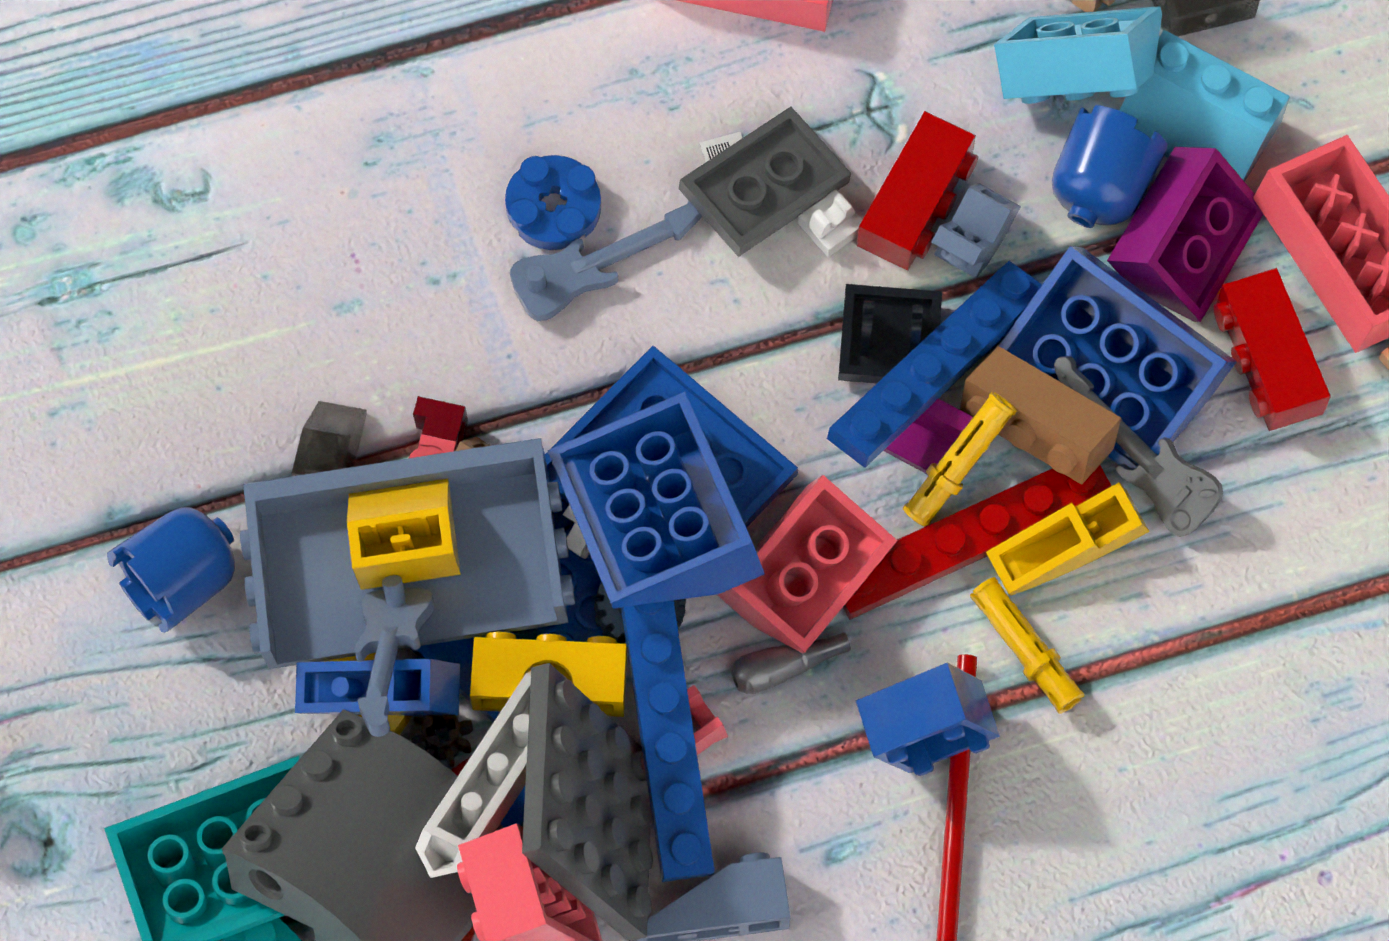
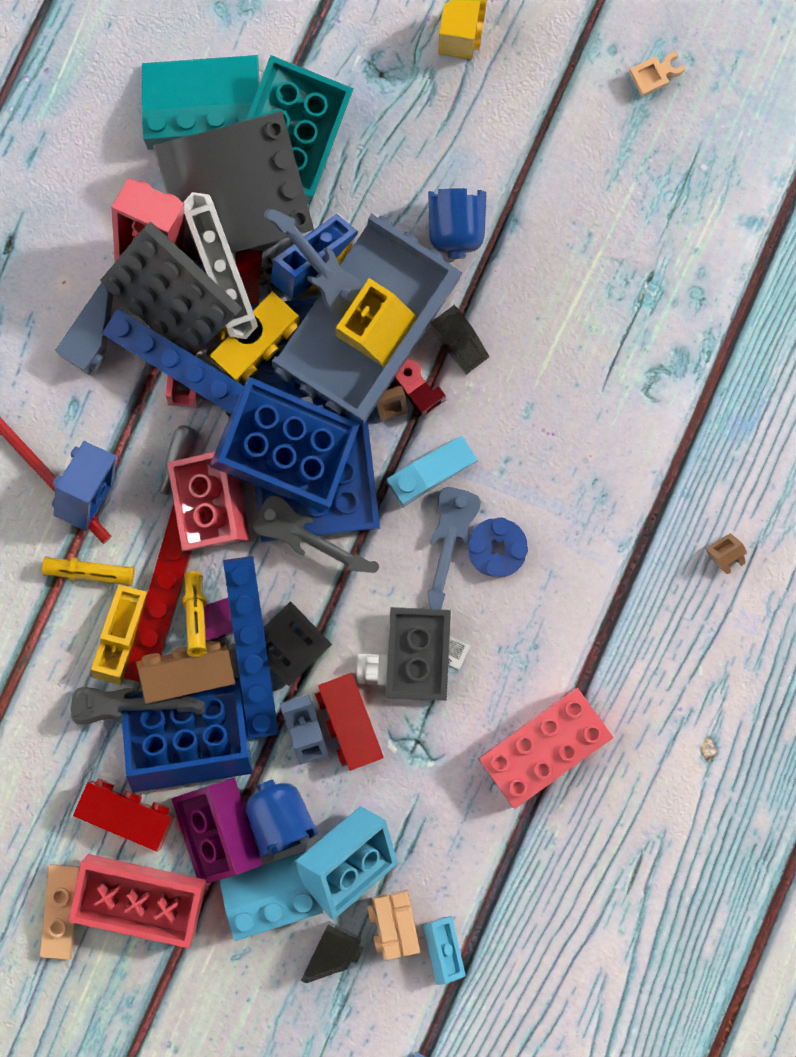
camera: 130 degrees right, 15 degrees up
(531, 347) = (431, 471): none -> medium azure slope
(753, 460) = (280, 522): none -> dark grey piece

